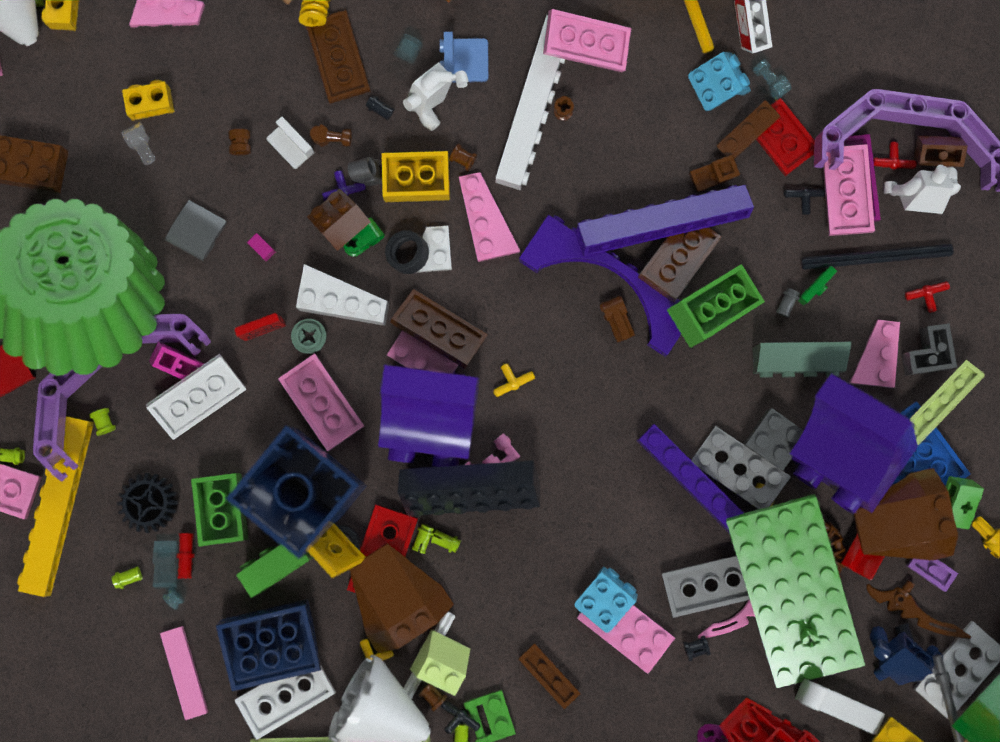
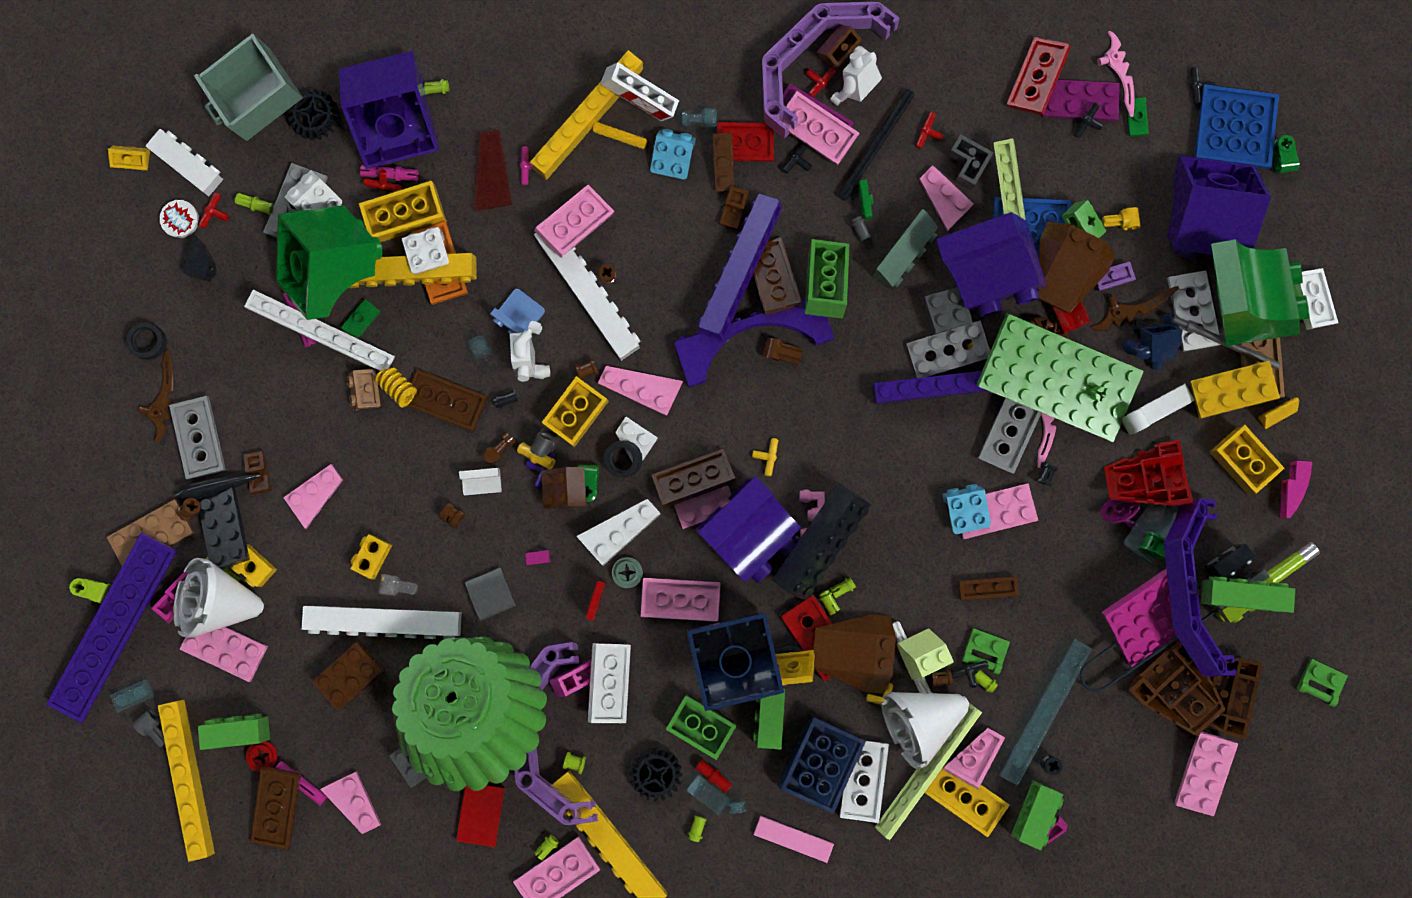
camera: 55 degrees left, 0 degrees up
(98, 154) = (381, 621): none -> white brick
(351, 187) = (546, 462): none -> yellow pin

